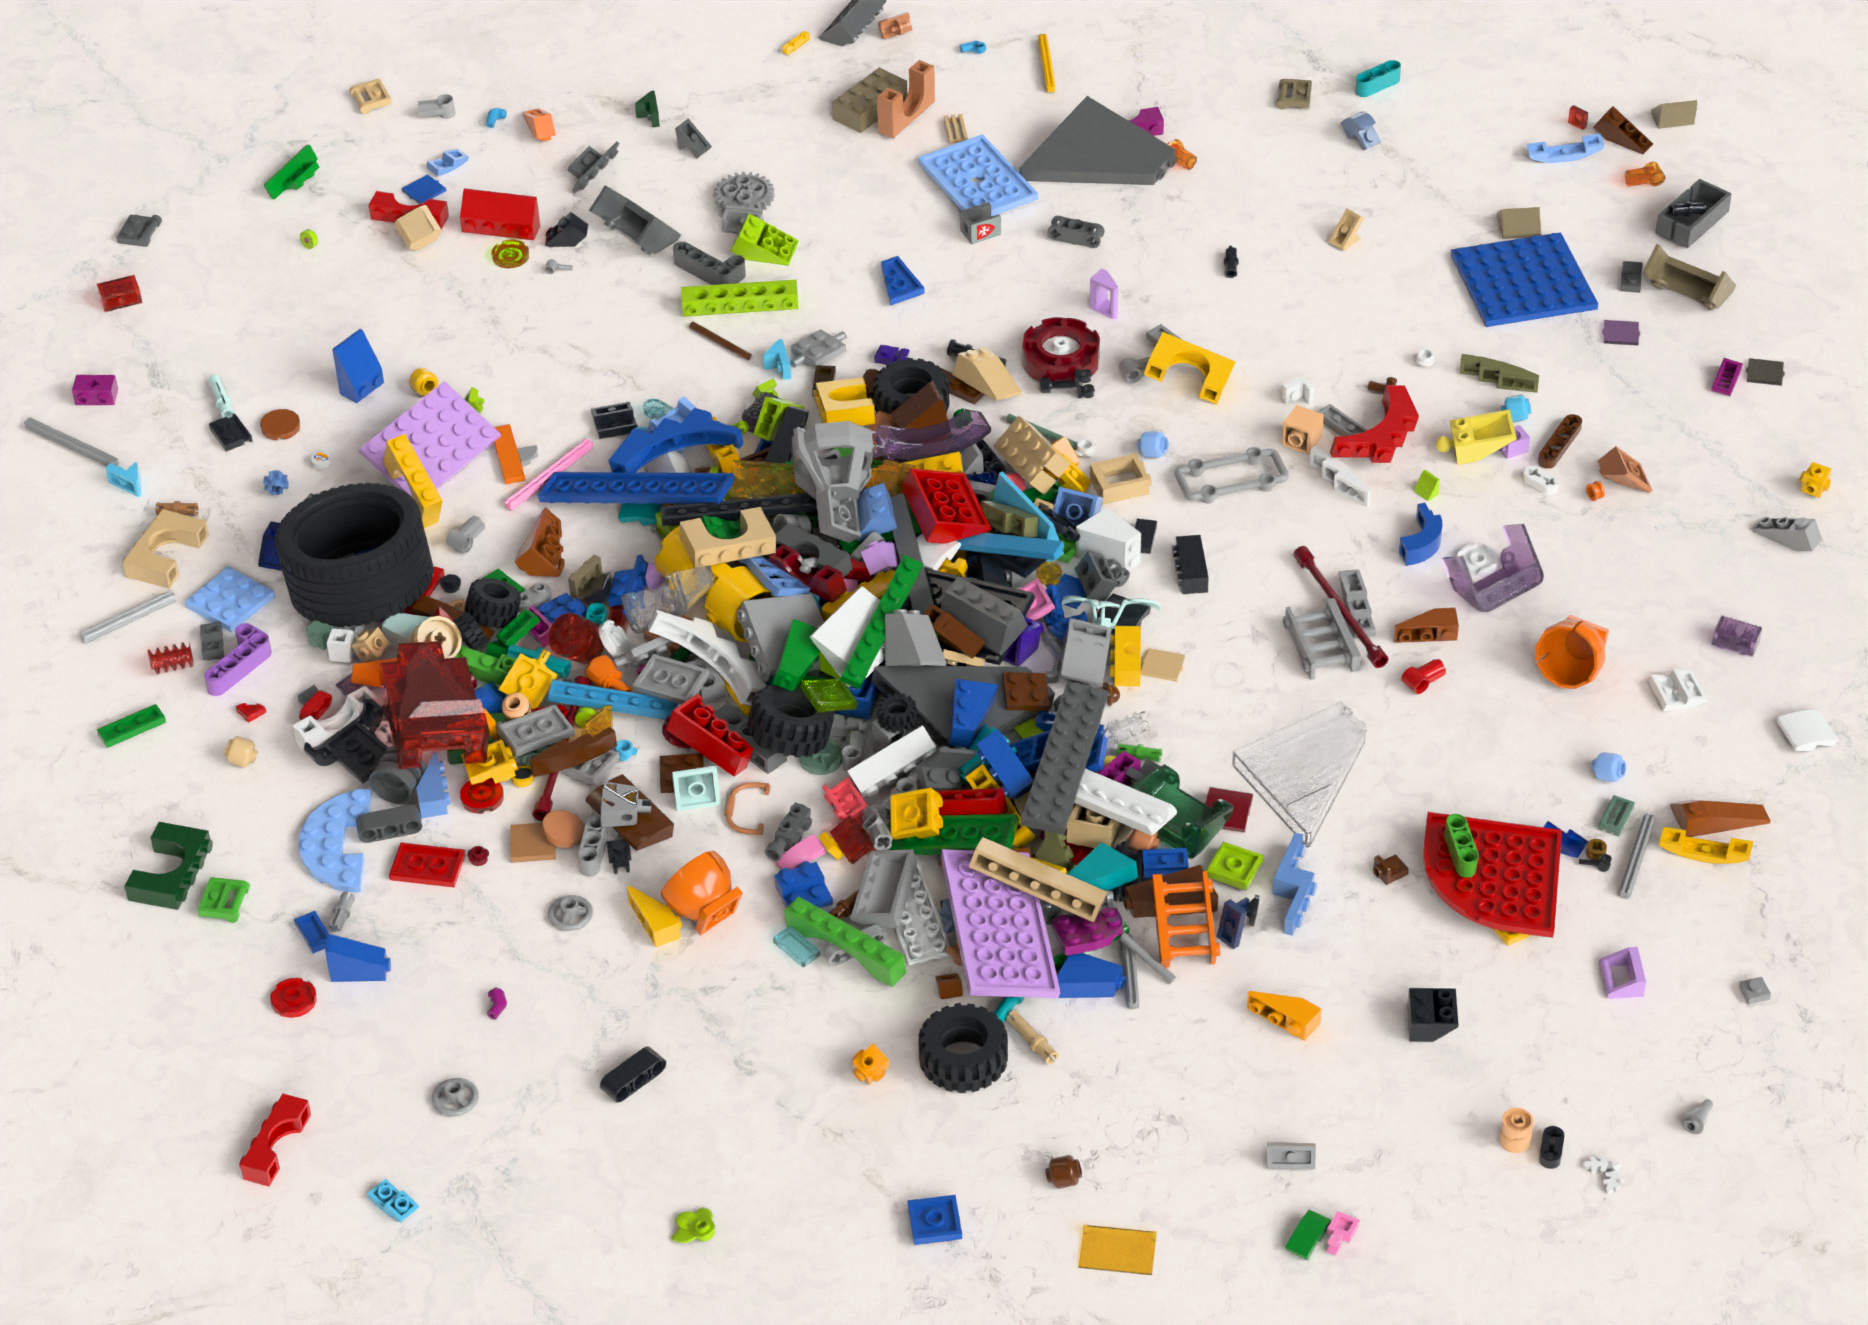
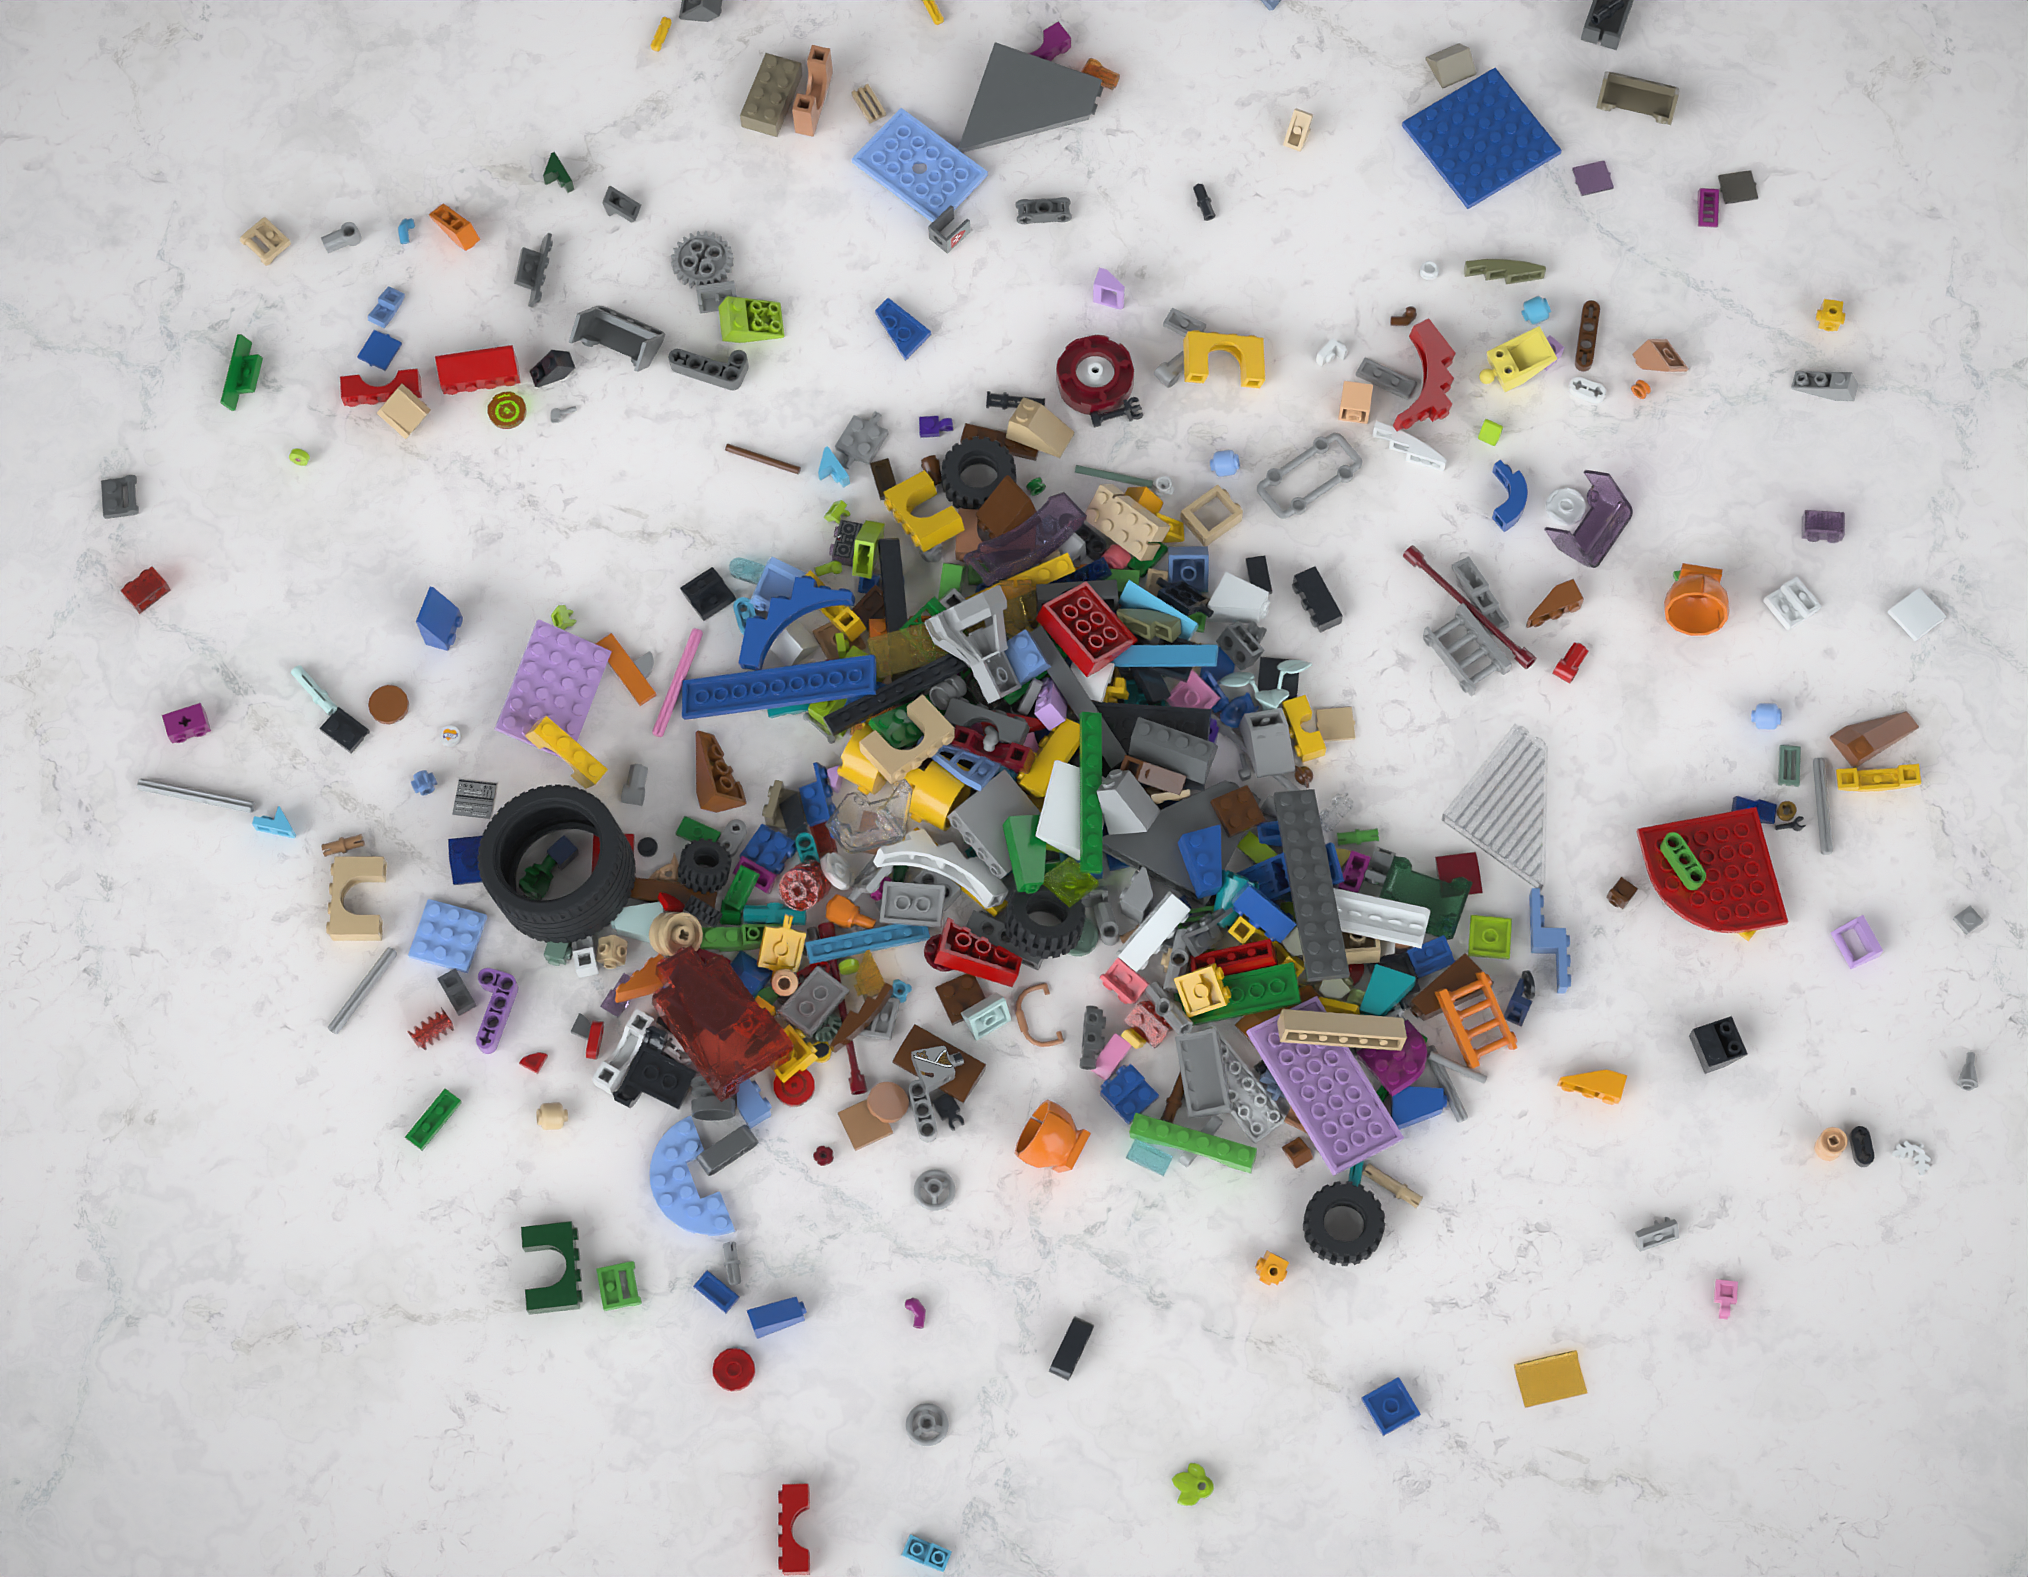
camera: 20 degrees left, 25 degrees up
(423, 381) = (504, 608): yellow head -> none
(427, 865) = (782, 1181): red tile -> none
(655, 917) = (1015, 1173): yellow slope -> none
(739, 297) = (765, 391): lime brick -> none
(897, 721) = (1133, 894): black tyre -> none
(1064, 1171) = (1478, 1319): reddish brown head -> none
(1307, 1234) = (1700, 1309): green slope -> none
(1631, 276) = (1578, 104): dark grey slope -> none

